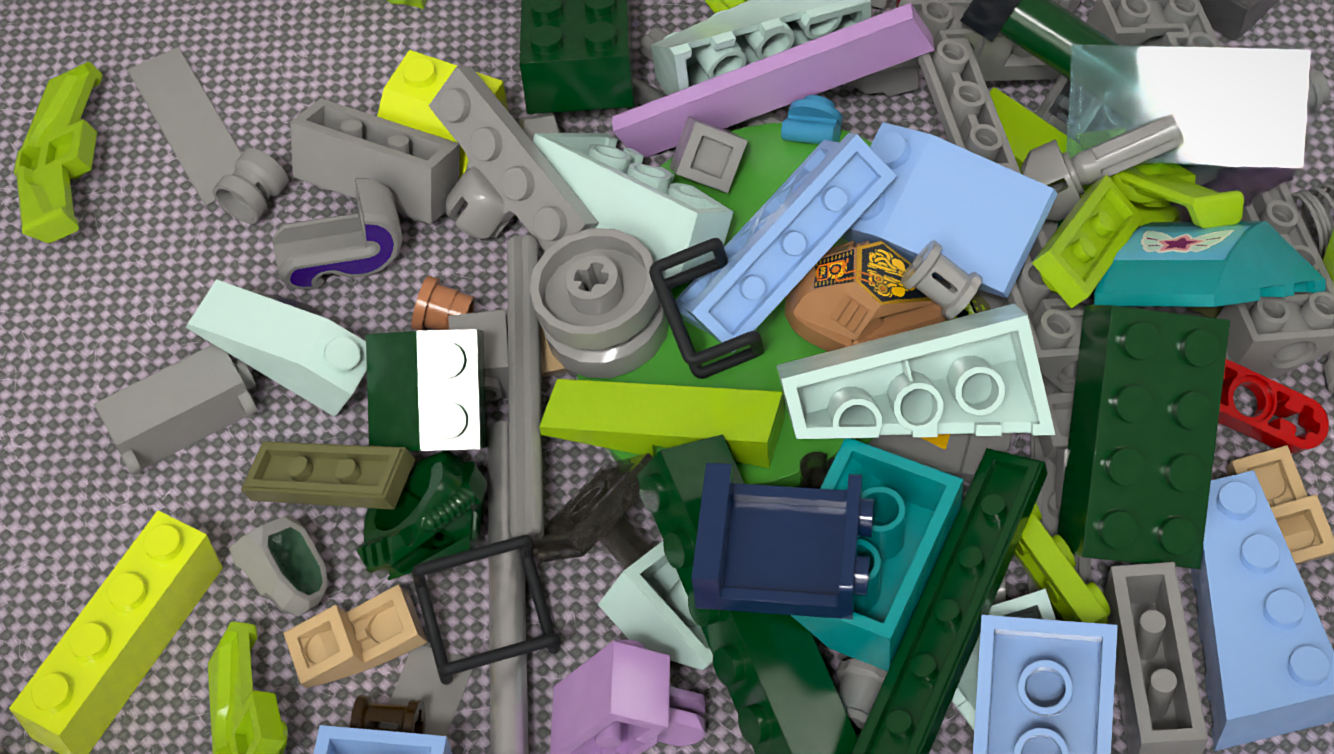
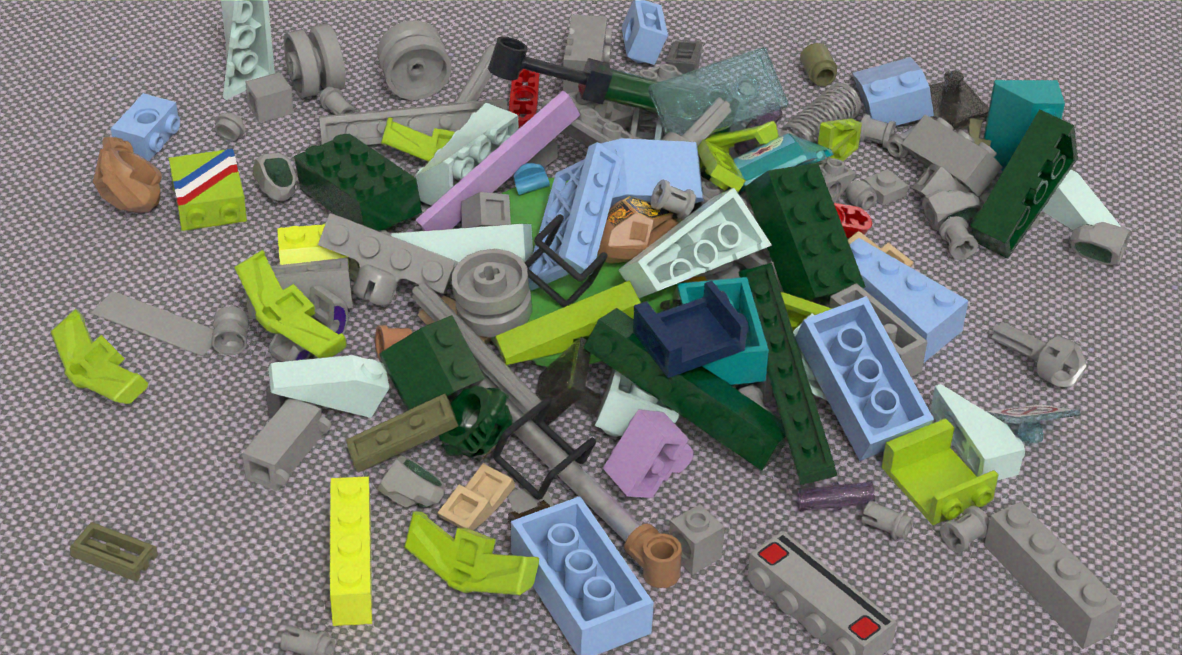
camera: 40 degrees left, 15 degrees down
(309, 194) = (286, 310): none -> lime plate

